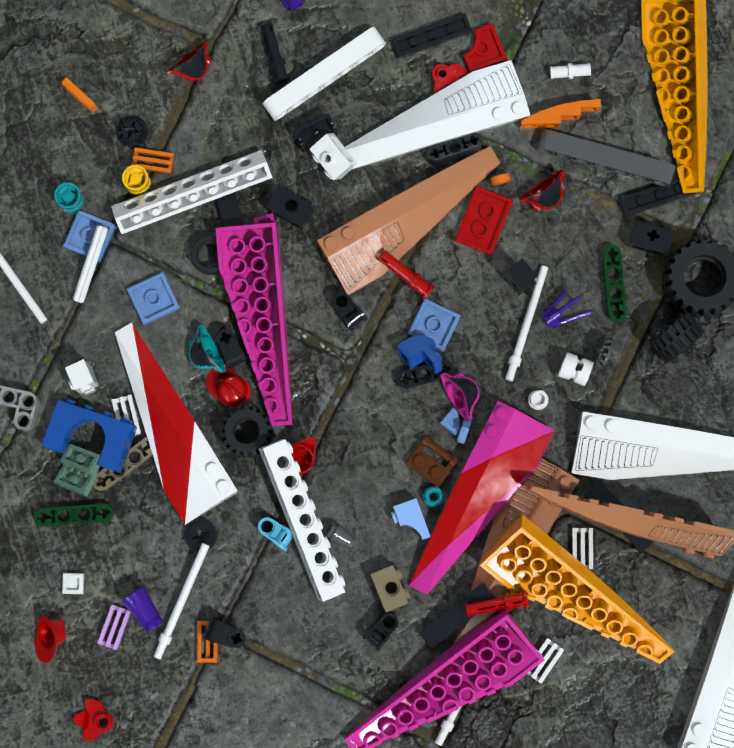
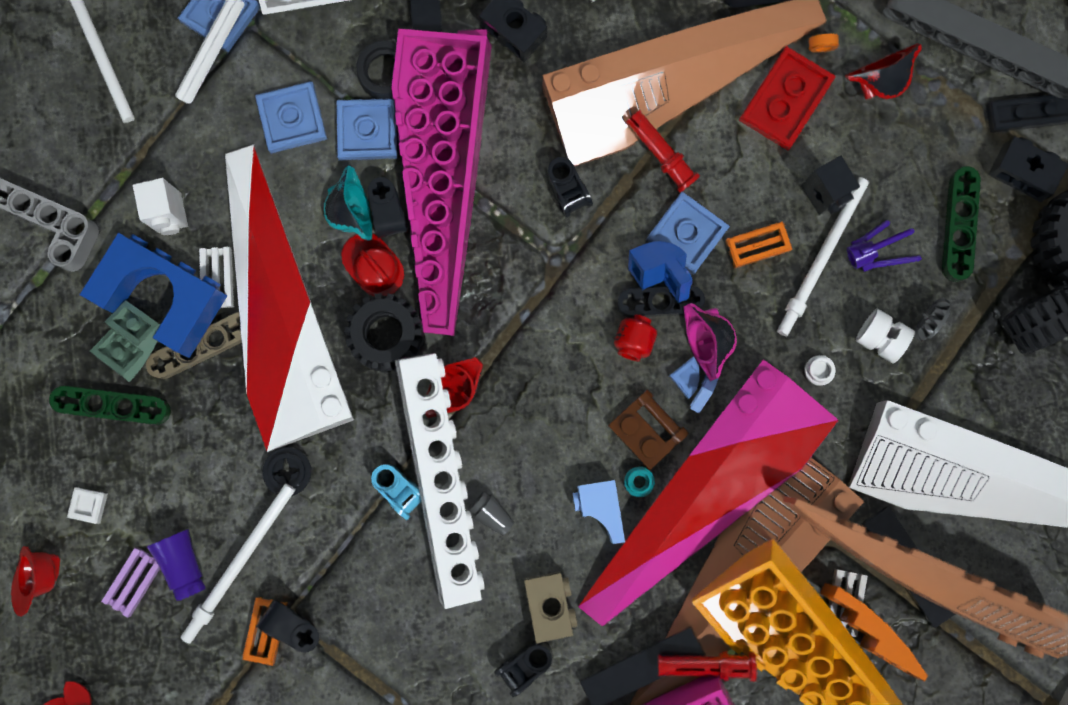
camera: 10 degrees right, 0 degrees up
(206, 296) = (366, 129): none -> medium blue tile
(412, 402) = (635, 338): none -> red head
(467, 331) = (734, 253): none -> orange tile
(606, 565) = (878, 635): none -> orange slope

